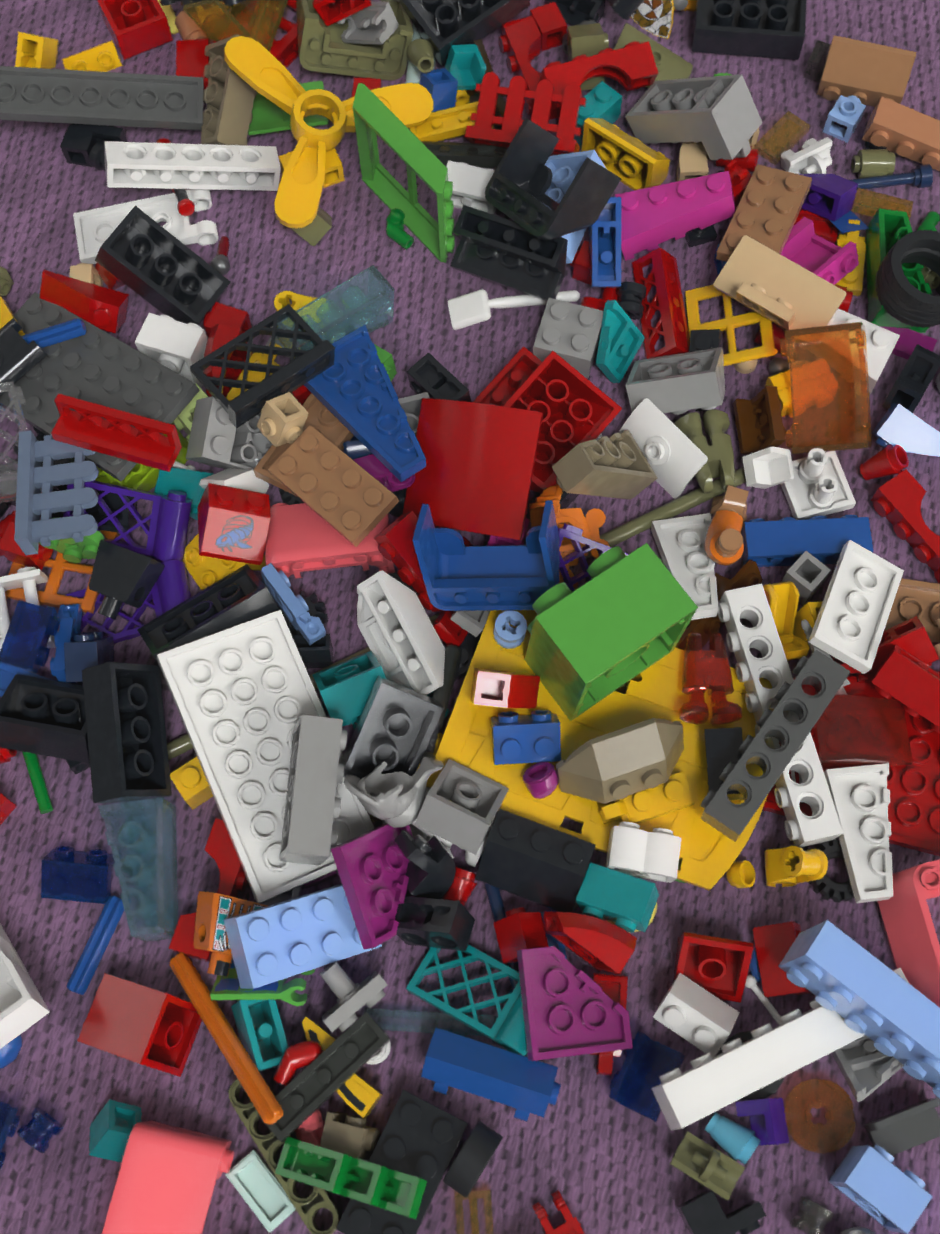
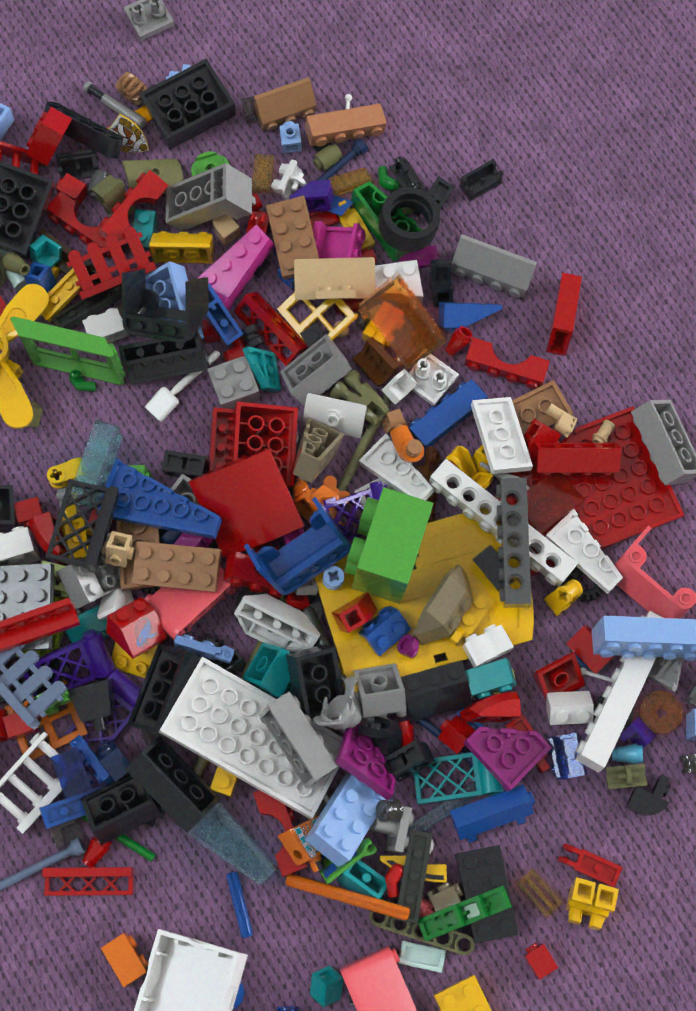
camera: 40 degrees left, 5 degrees up
(77, 875) = (200, 877): clear blue bracket -> none
(141, 1025) = (297, 925): red slope -> none
(355, 965) = (389, 810): none -> clear smoke wheel
(472, 1159) = (514, 859): black tyre -> none
(707, 671) = (453, 526): clear red piece -> none
(741, 874) = (541, 620): yellow hinge -> none
(807, 575) = (462, 435): light grey brick -> none

